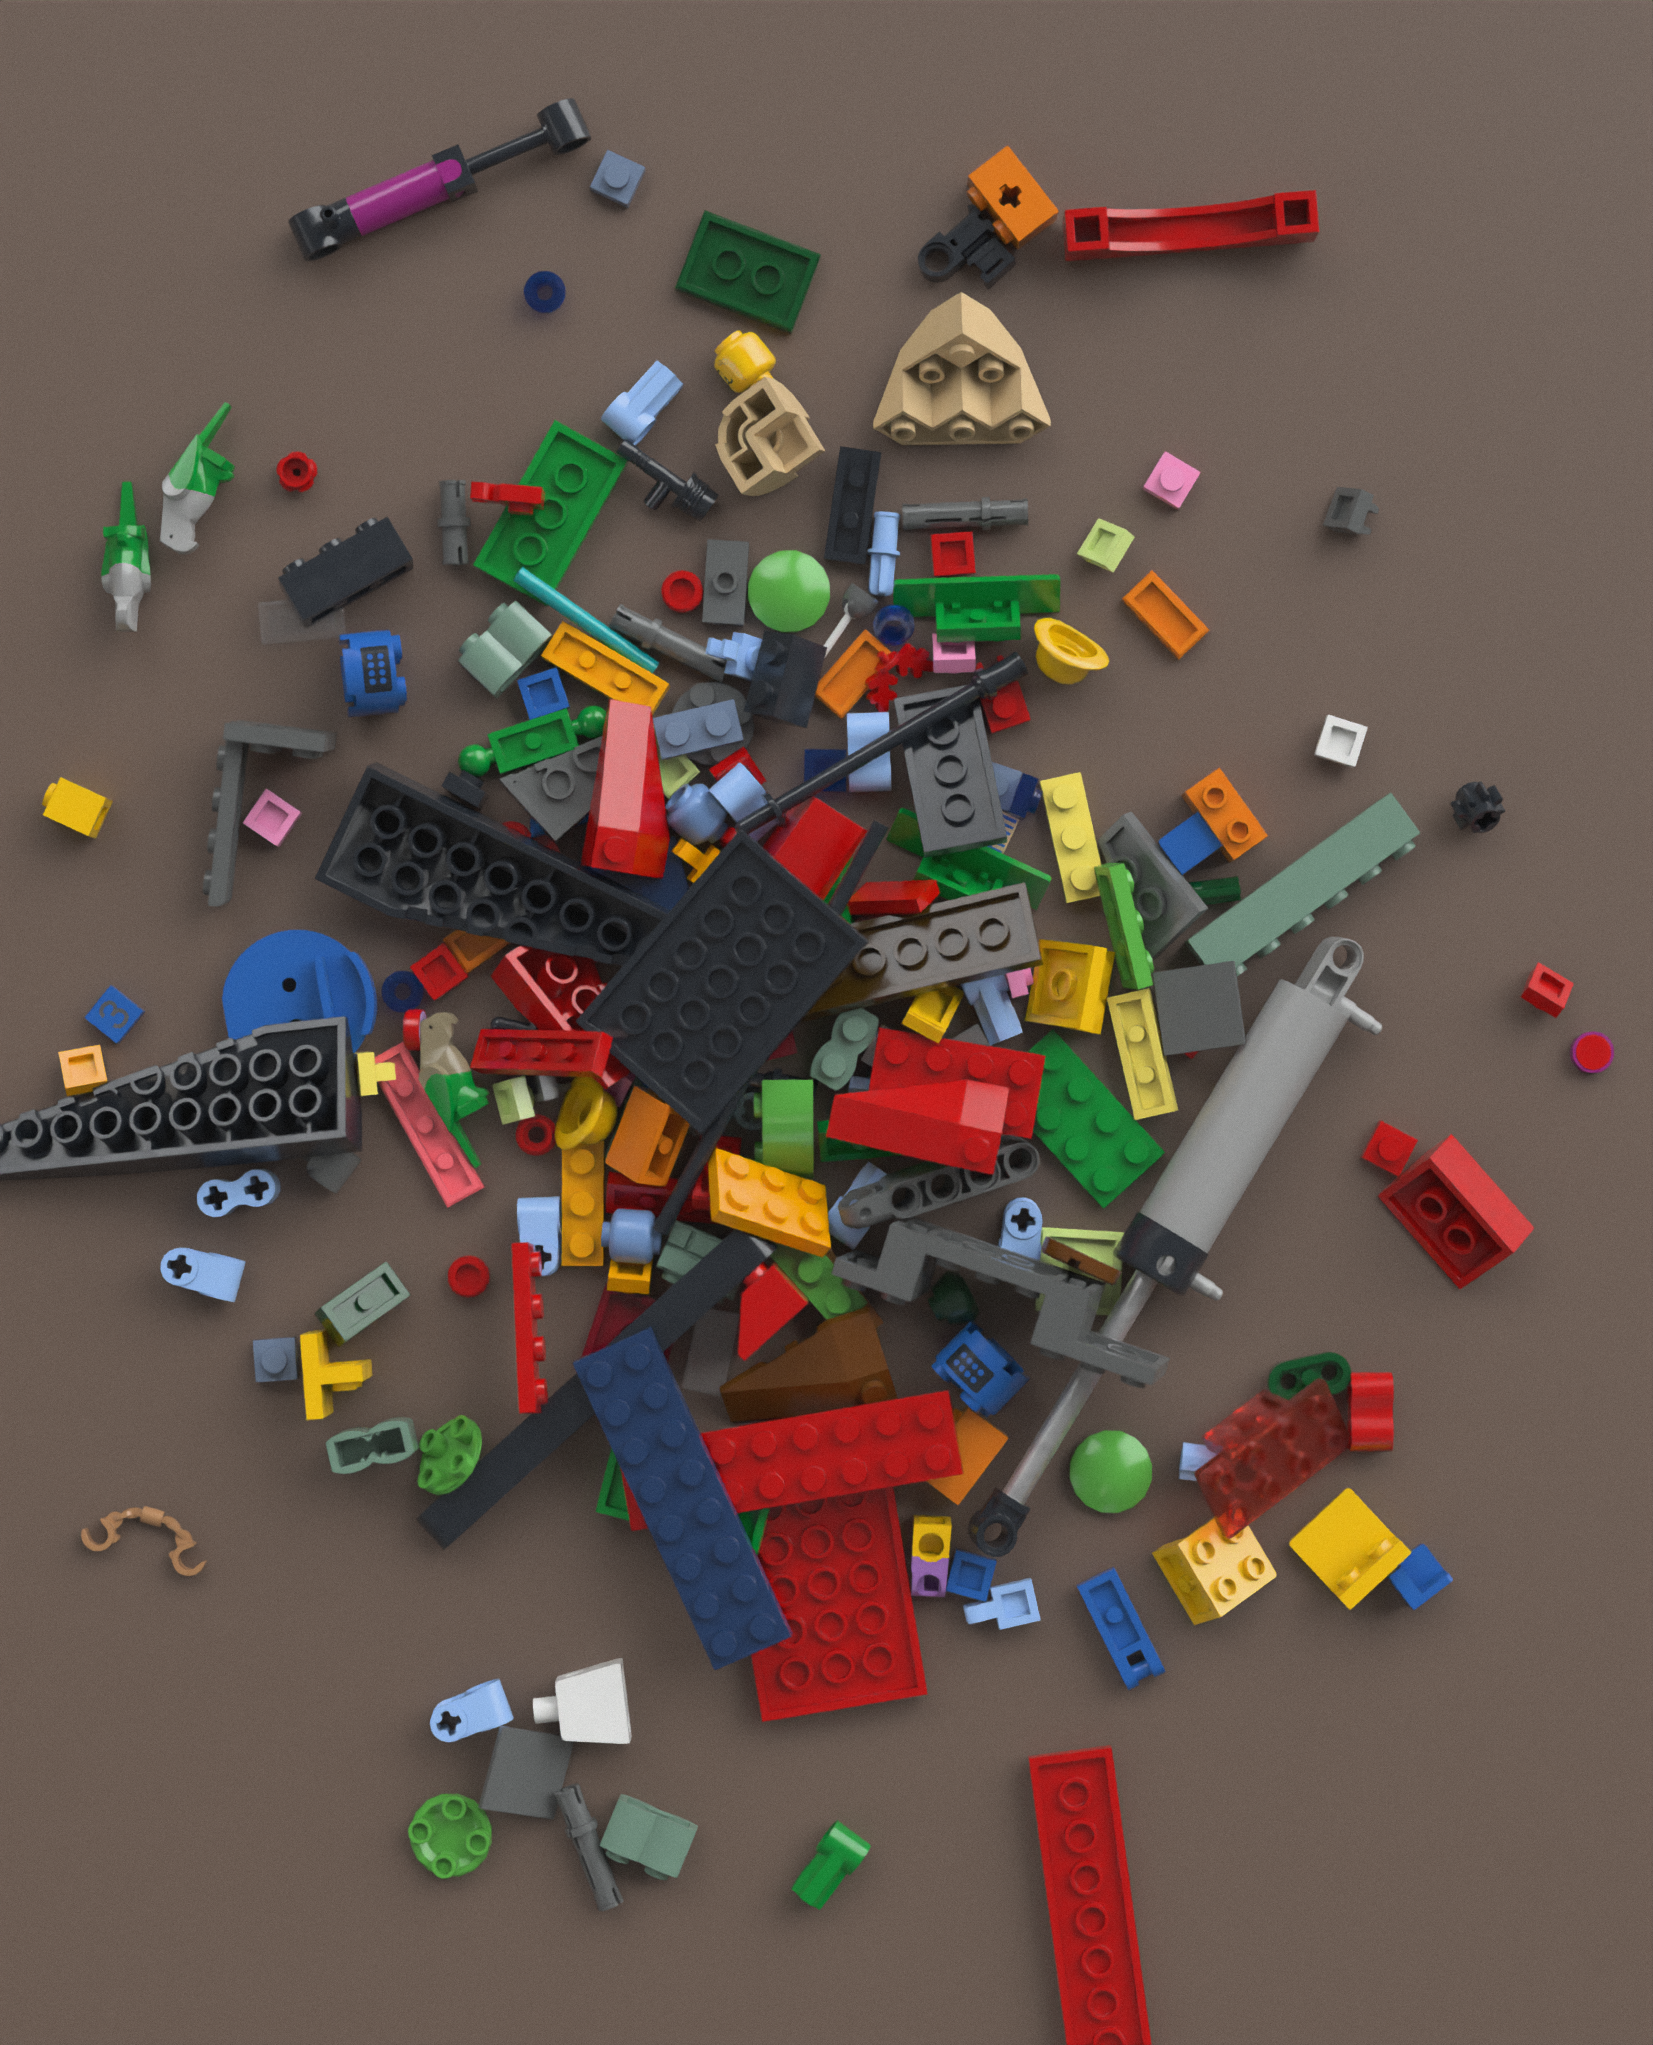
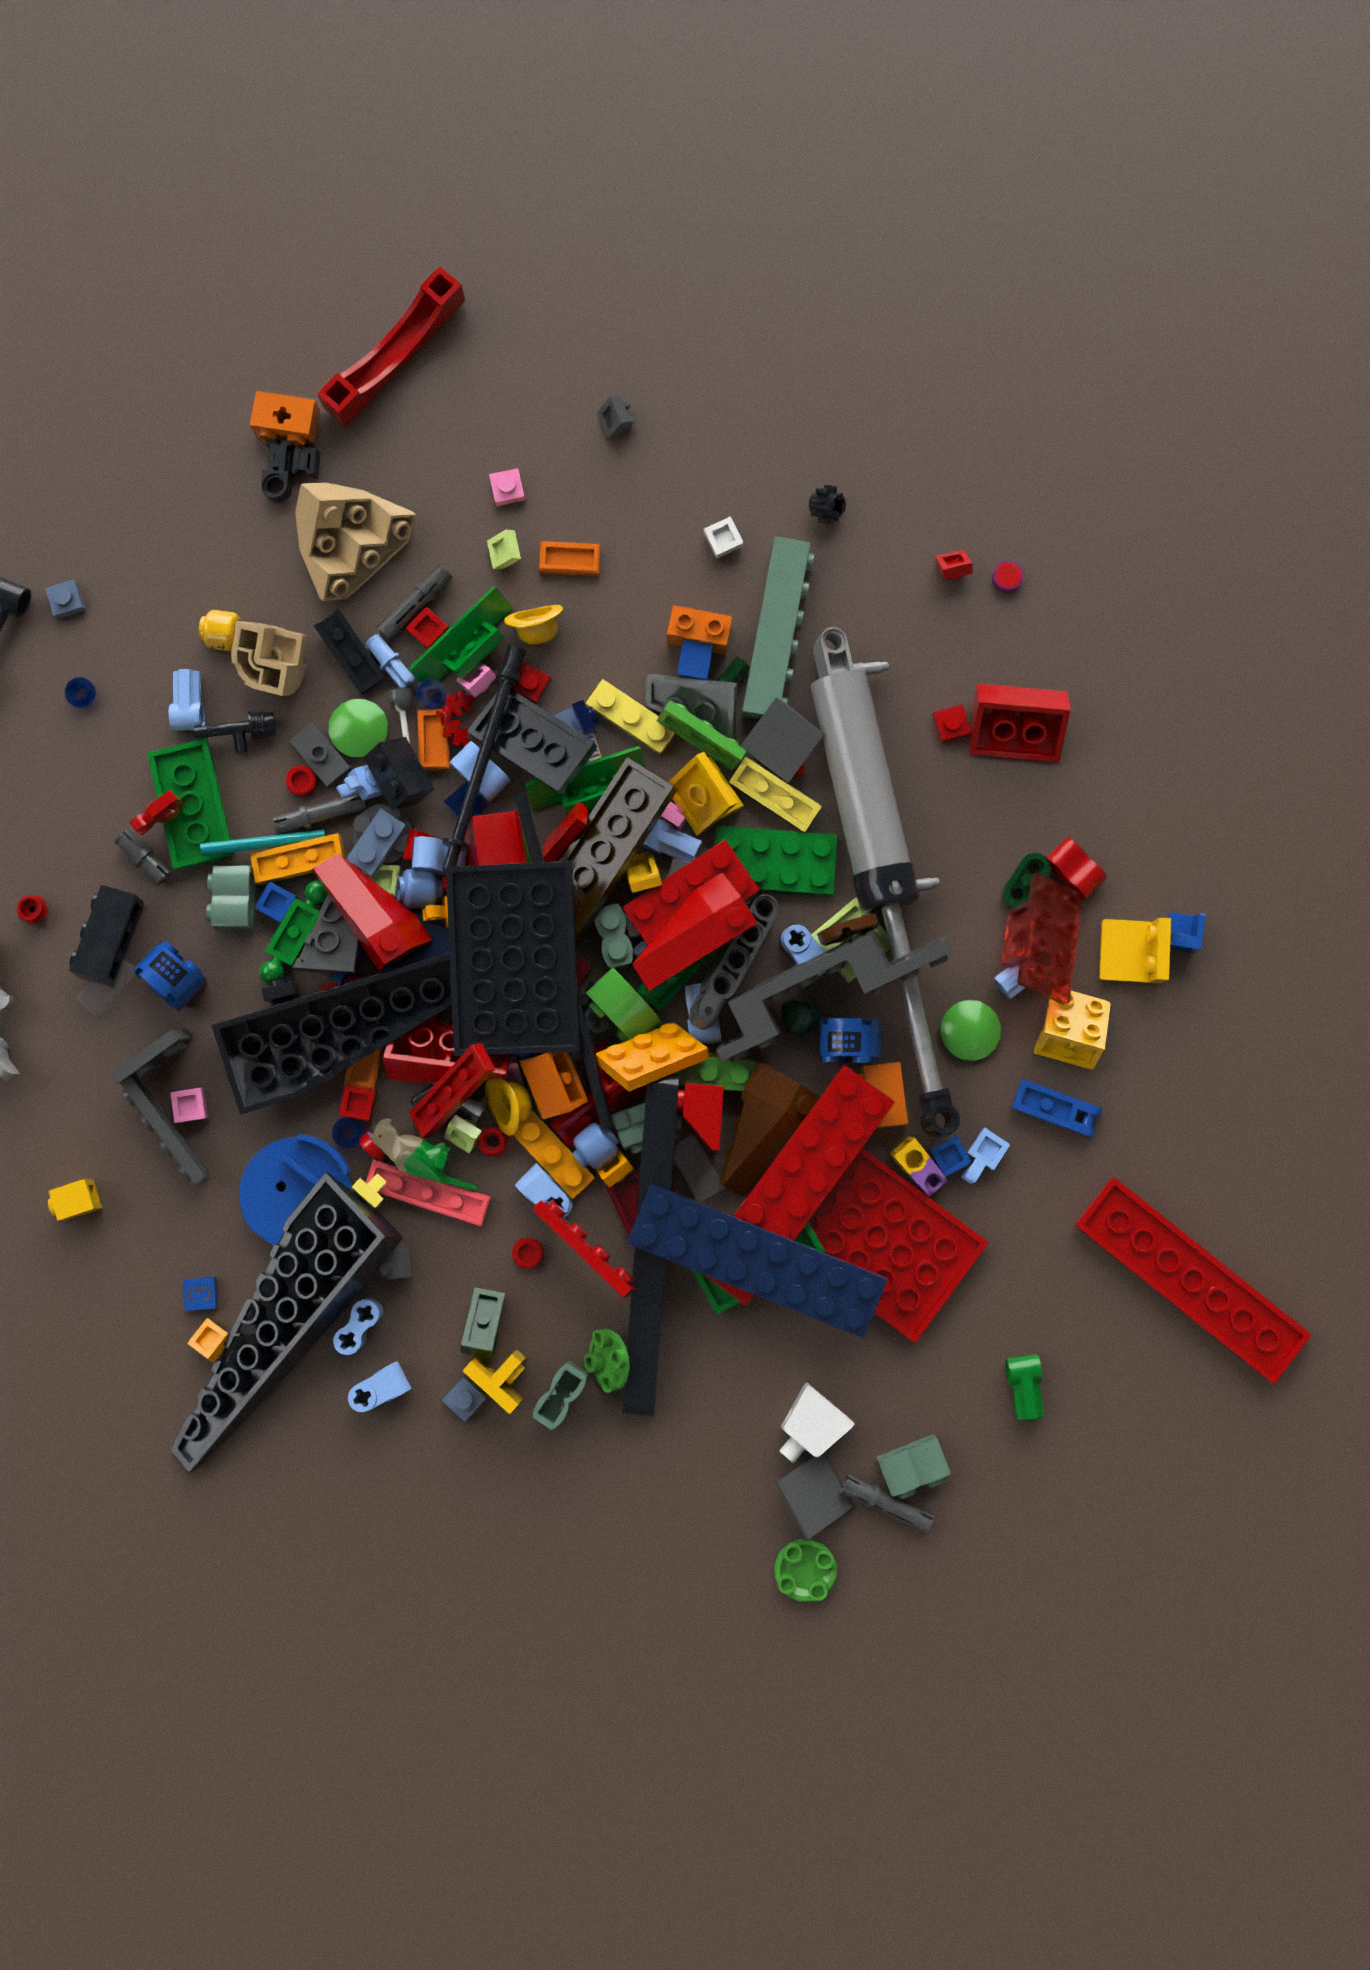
camera: 50 degrees left, 5 degrees down
(152, 1517) = (474, 1553): medium nougat piece -> none
(478, 1708) = (756, 1485): light blue piece -> none
(748, 272) = (180, 584): dark green tile -> none

